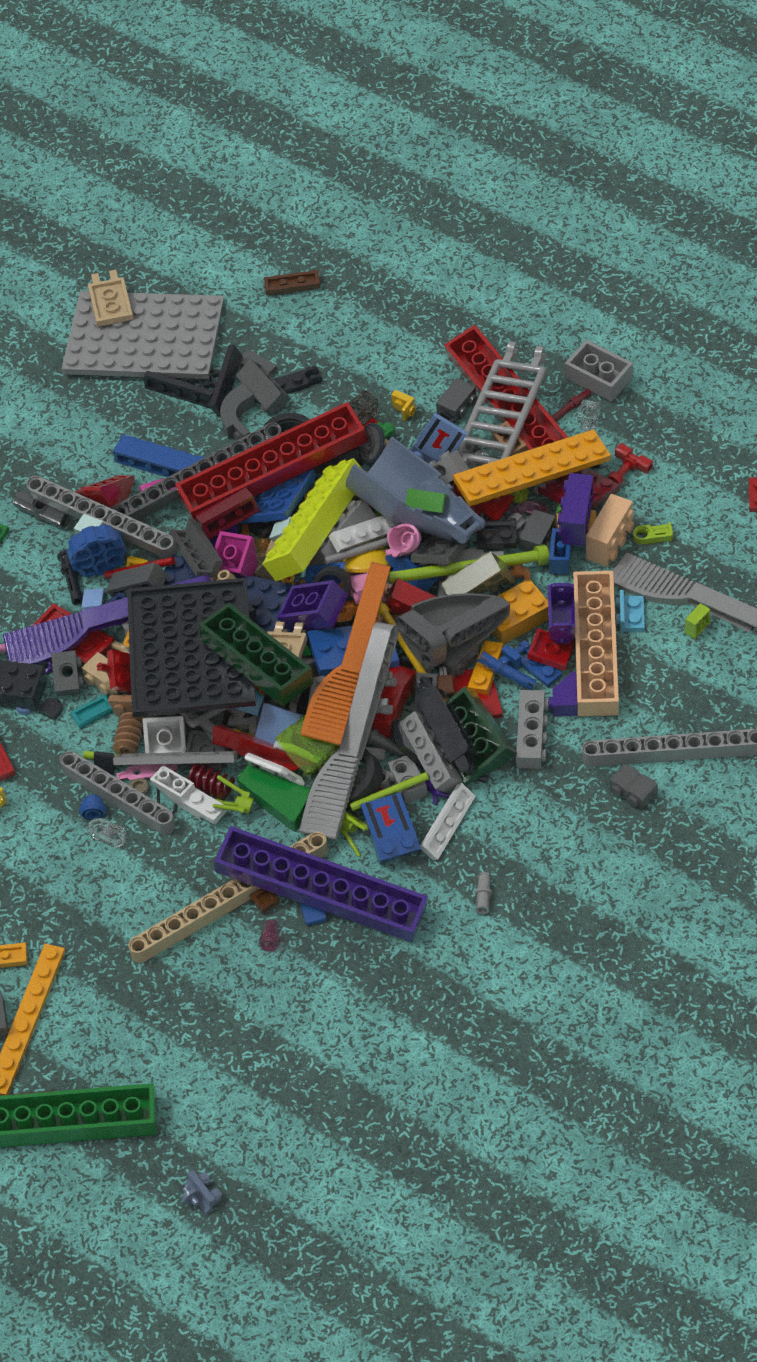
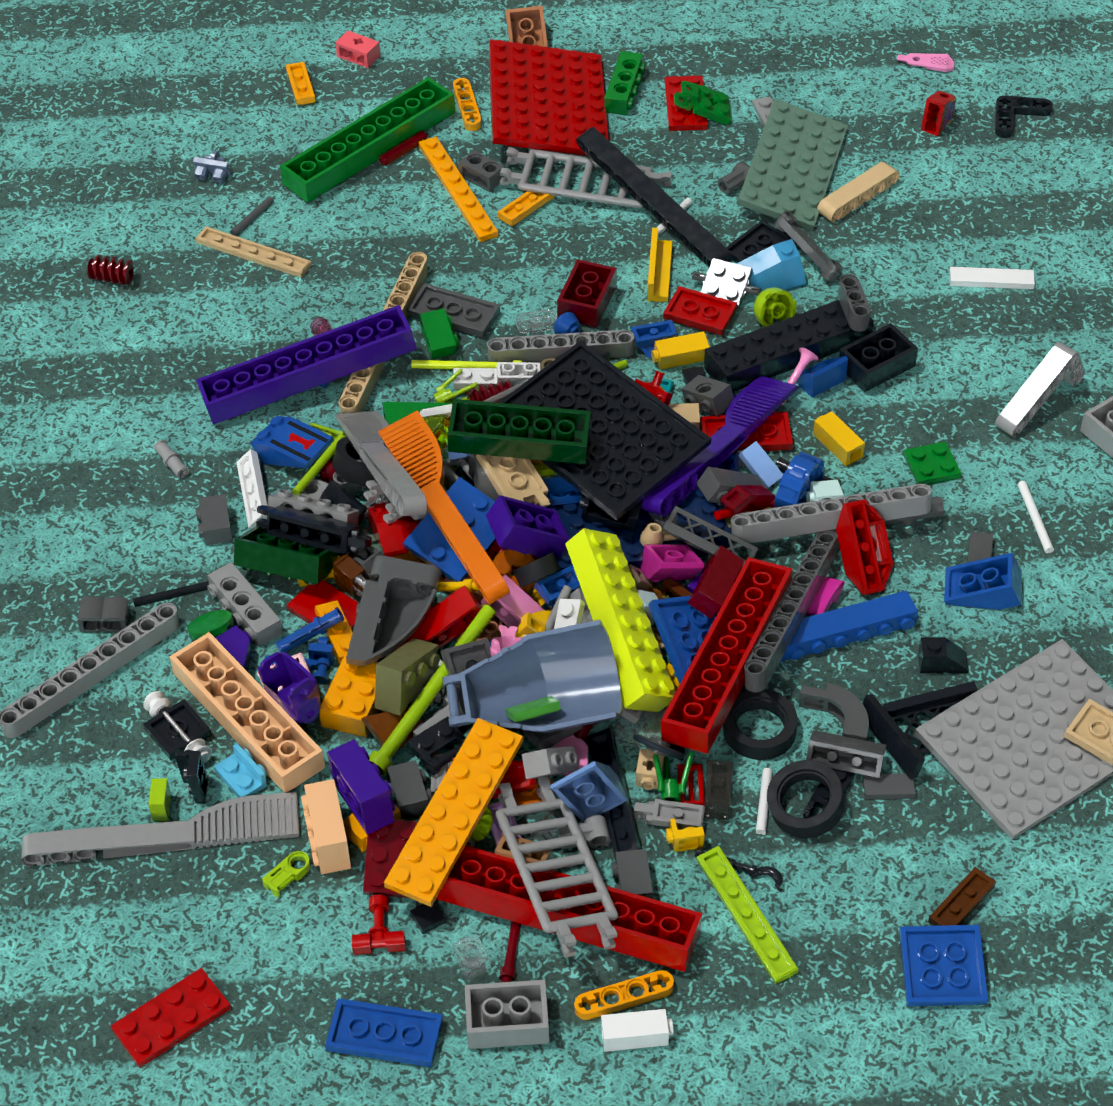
camera: 135 degrees right, 5 degrees down
(19, 588) = (838, 438): none -> yellow brick
(31, 460) = (979, 546): none -> dark grey tile
(31, 1251) = (300, 83): none -> light orange plate
(39, 728) = (680, 350): none -> yellow brick
(40, 757) = (647, 335): none -> blue slope
(49, 822) = (587, 292): none -> dark red brick
(58, 434) = (985, 583): none -> blue slope
(140, 410) = (941, 656): none -> black slope
(141, 555) = (744, 495): none -> dark red slope
(154, 885) = (467, 312): none -> dark grey plate
(164, 800) = (437, 364): none -> neon yellow bar
(193, 861) = (438, 333): none -> green brick
(214, 1113) = (252, 216): none -> dark grey bar
(248, 1071) = (253, 252): none -> tan tile
(311, 394) = (798, 772): none -> black tyre
(336, 400) = (763, 806): none -> white bar
(341, 257) = (943, 965): none -> blue plate
(377, 546) = (530, 625): none -> yellow tile
(380, 1123) = (111, 271): none -> dark red piece
(383, 369) = (753, 871): none -> black piece
(402, 425) = (661, 811): none -> light grey hinge
(413, 347) = (747, 915): none -> lime tile
(495, 812) = (215, 519): none -> dark grey brick
(523, 348) = (622, 990): none -> light orange beam
(535, 326) = (636, 1030): none -> white brick
(566, 779) = (164, 595): none -> black bar
(567, 725) = (213, 622): none -> green tile
(648, 667) = (176, 727): none -> black plate
(664, 615) = (194, 773): none -> black bracket
(673, 410) = (384, 1032): none -> blue plate

